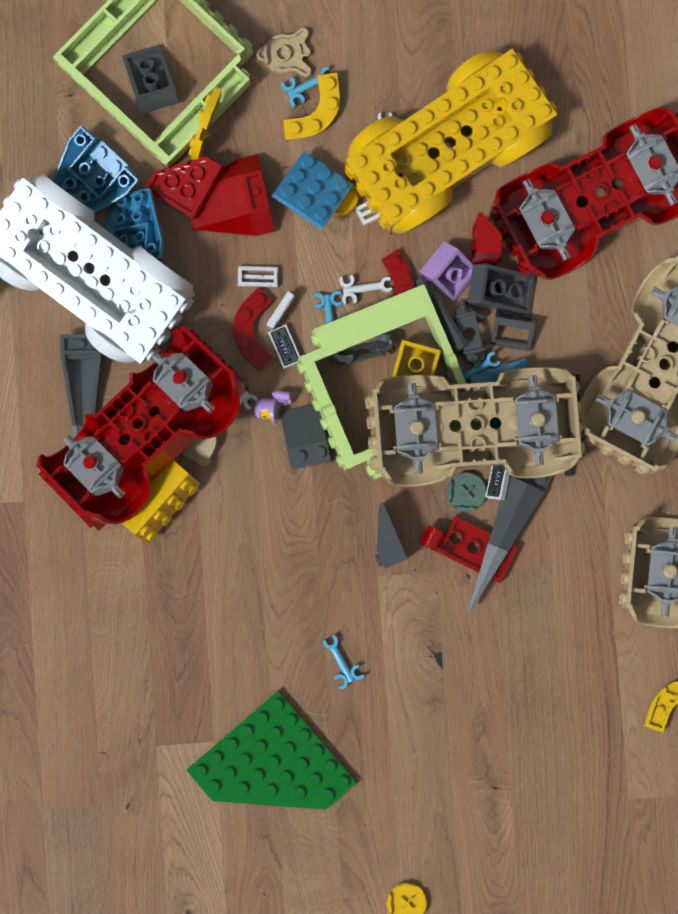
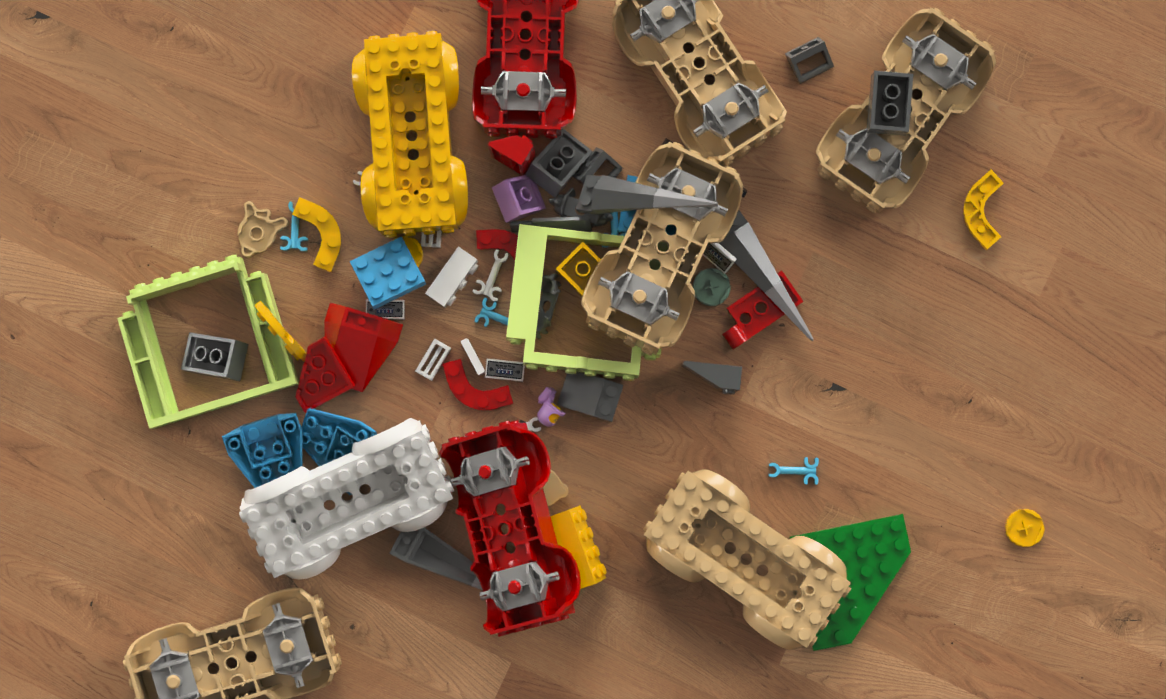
camera: 55 degrees left, 0 degrees up
(224, 600) = (801, 577): none -> tan piece
(281, 214) = (391, 310): none -> tile
(341, 252) = (452, 277): none -> white brick
(497, 351) = (610, 195): none -> dark grey plate

